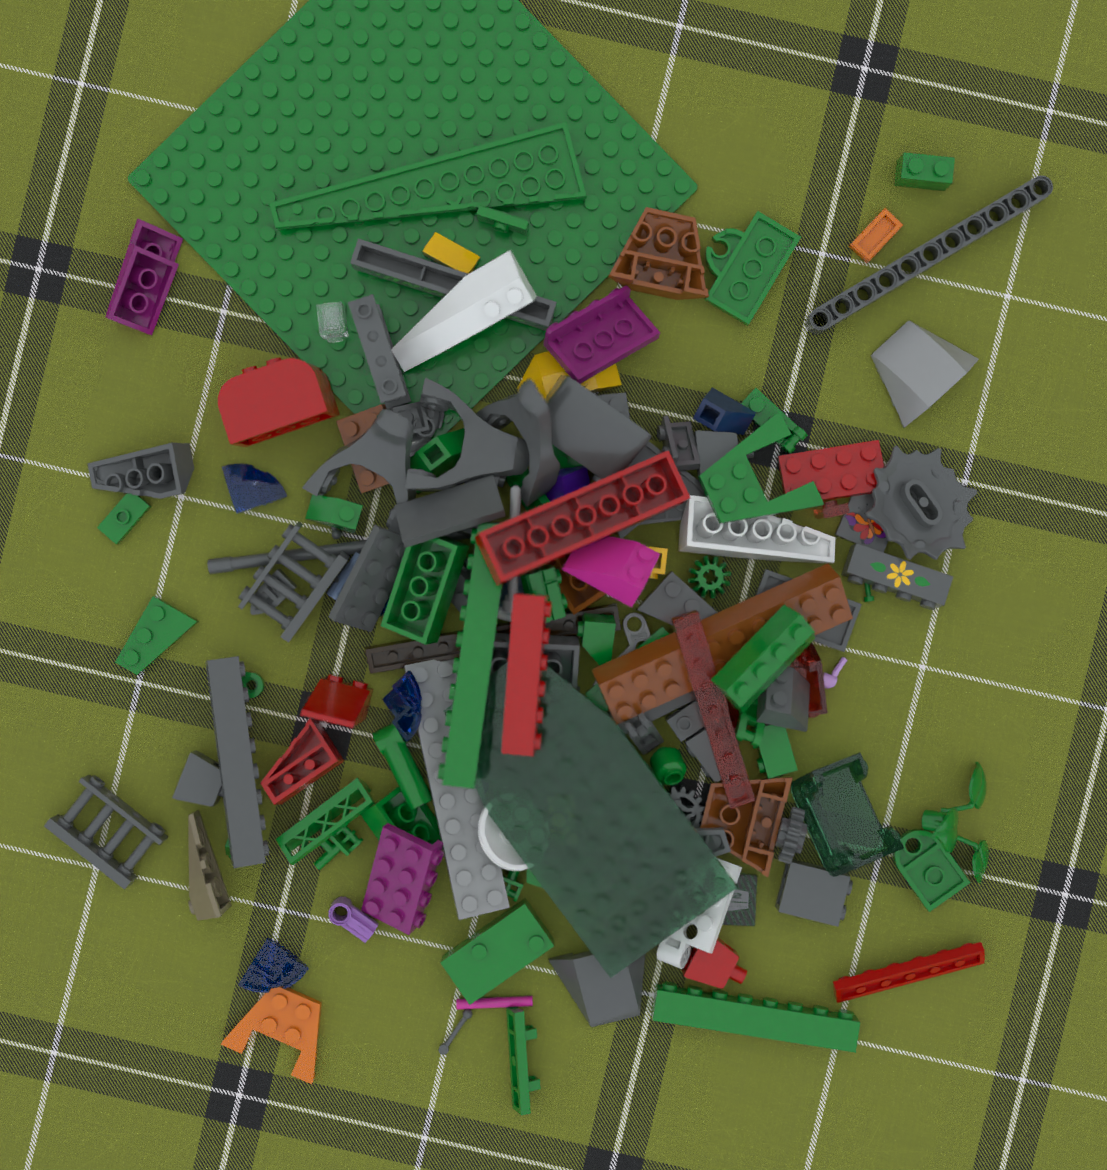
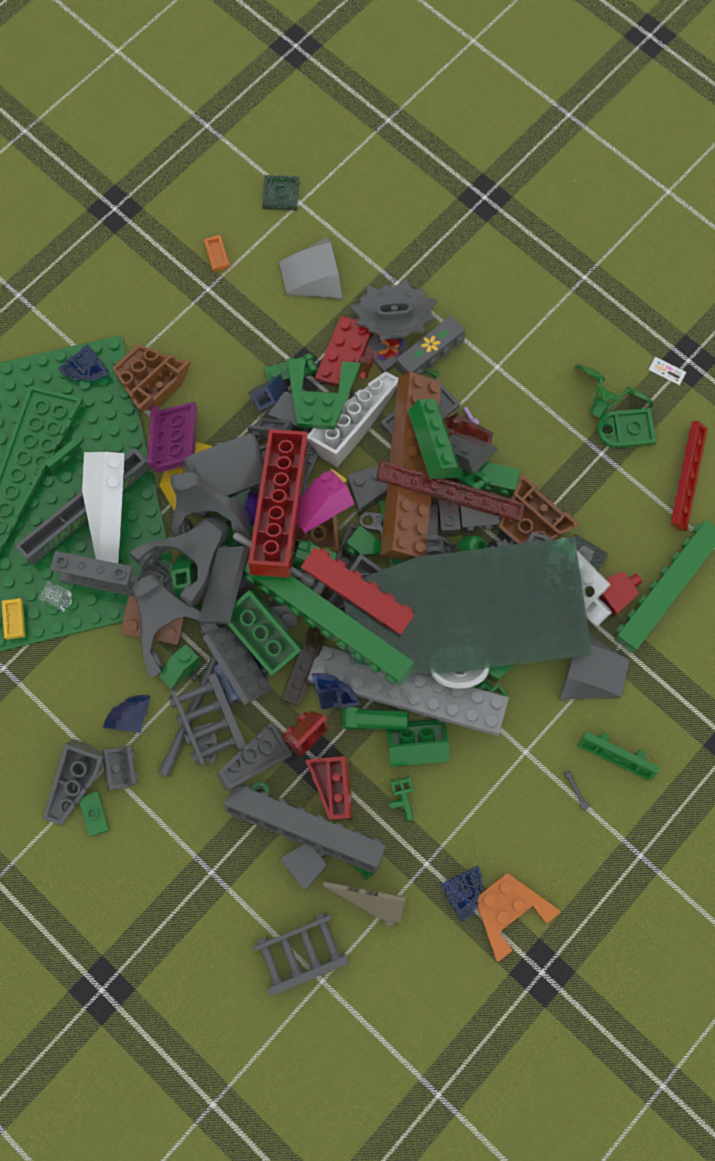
camera: 60 degrees left, 15 degrees down
(154, 633) = (185, 841): green wing -> none
(187, 515) = (119, 768): none -> dark grey bracket
(274, 401) = (82, 660): red brick -> none
(280, 289) = (13, 619): none -> yellow plate
(282, 661) = (257, 756): none -> dark grey wing
(322, 818) = (378, 791): green fence -> none
(354, 921) = (461, 814): medium lavender piece -> none
(402, 879) = (450, 761): magenta bracket -> none
(450, 254) = (58, 501): yellow slope -> none
(496, 1002) = (569, 752): dark pink bar -> none
(497, 951) = (535, 727): green brick -> none
(631, 170) = (84, 366): none -> brick
(701, 581) = (366, 452): green gear -> none
(748, 266) = (187, 332): green plate -> none
(791, 835) = (560, 495): dark grey gear -> none
(813, 893) = (605, 505): dark grey brick -> none
(842, 816) = (565, 461): clear green windscreen -> none
(924, 171) = (196, 206): green brick -> none
(939, 250) = (247, 237): dark grey beam -> none
(1006, 264) = (280, 192): none -> clear green tile
(1036, 876) = (667, 370): none -> white sticker

